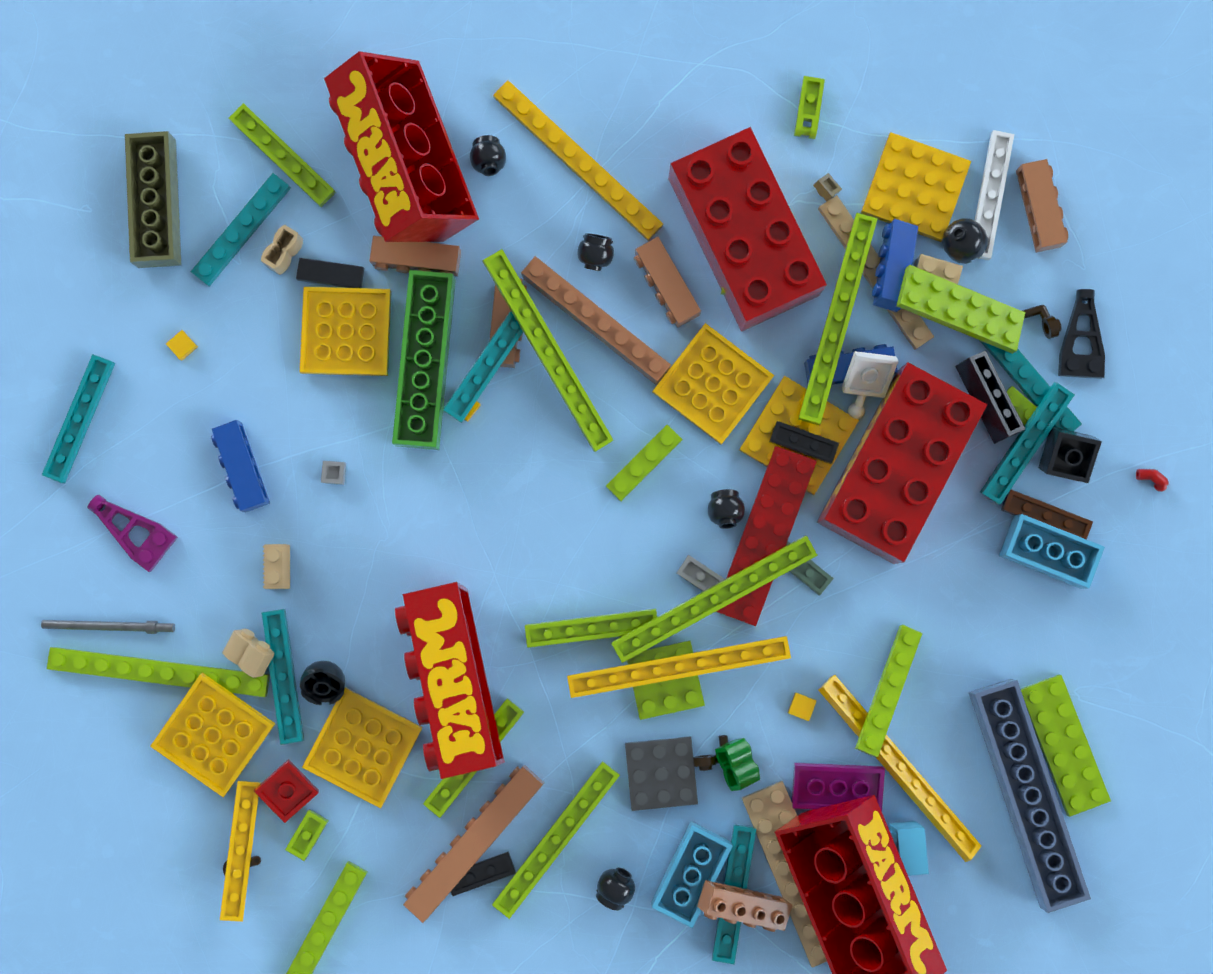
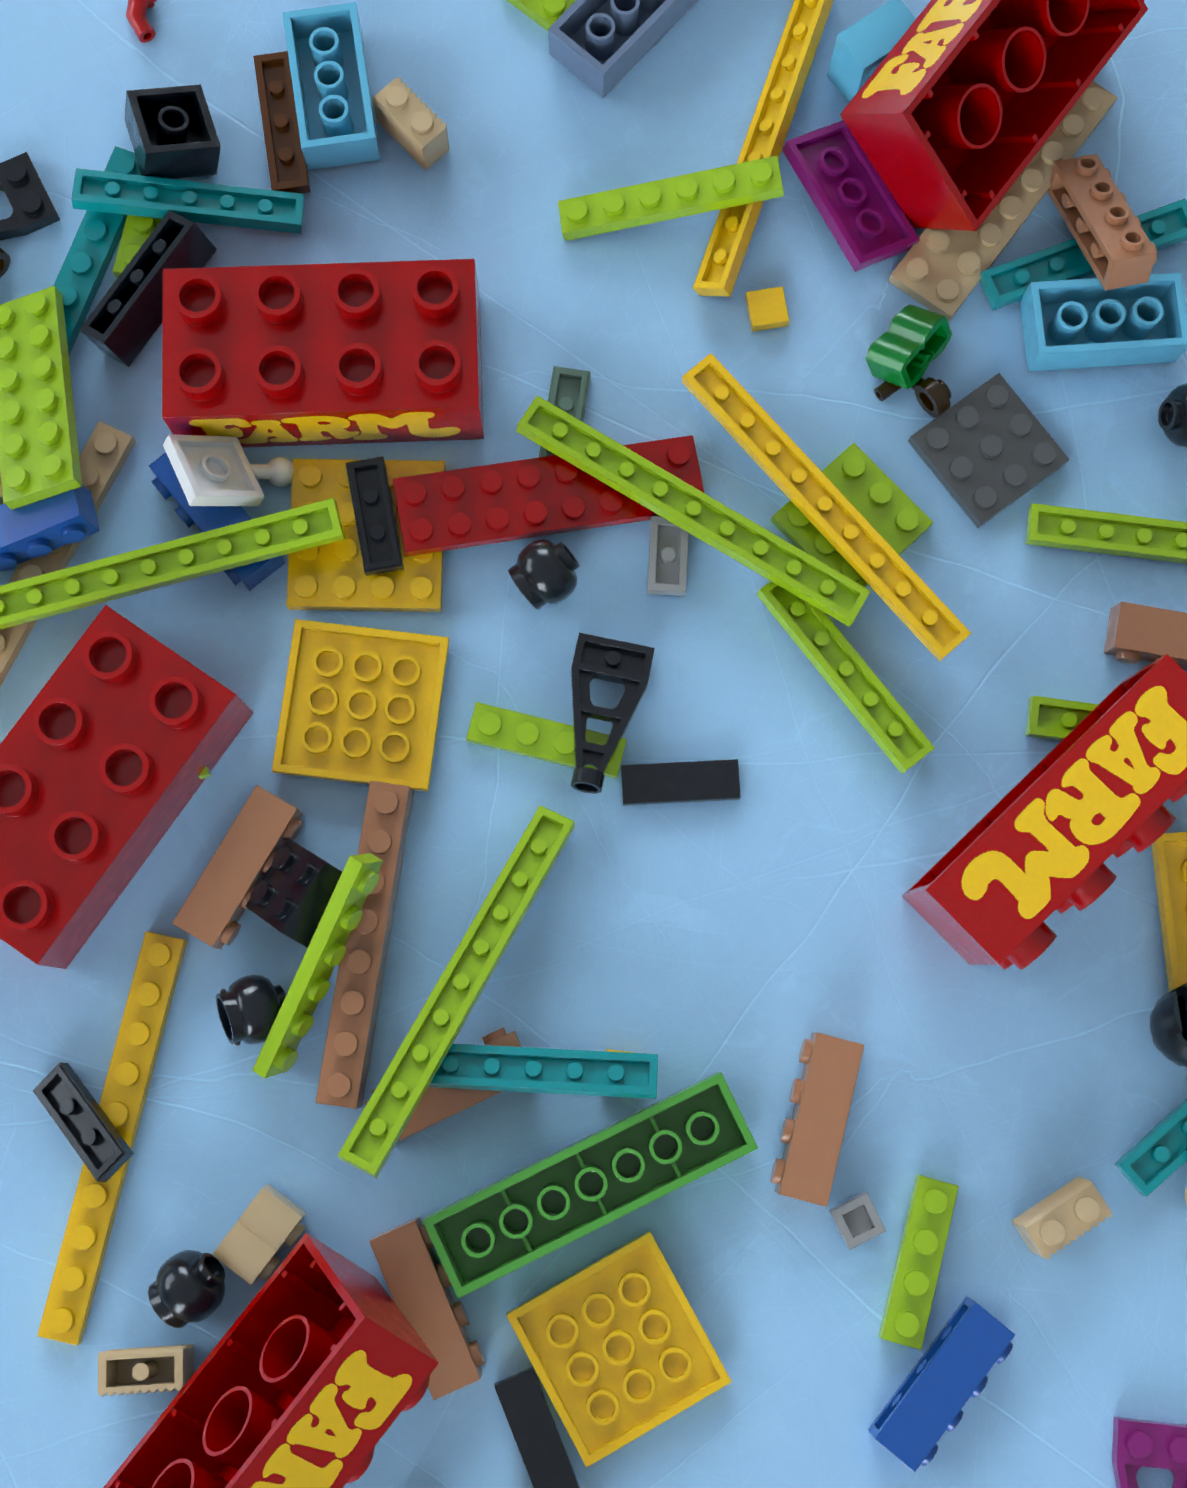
camera: 125 degrees left, 5 degrees down
(298, 490) = (918, 1262): none -> lime plate
(389, 482) = (818, 1118): none -> nougat brick
(463, 118) = (145, 1369): none -> tan brick
(492, 200) = (260, 1234): none -> tan brick
(585, 515) = (680, 782): none -> black tile
(590, 148) = (83, 1122): none -> black tile
(599, 295) = (313, 975): none -> lime plate
(634, 302) = (294, 892): none -> black brick
(662, 517) = (611, 662): none -> black plate
(1008, 581) = (411, 123): none -> tan brick

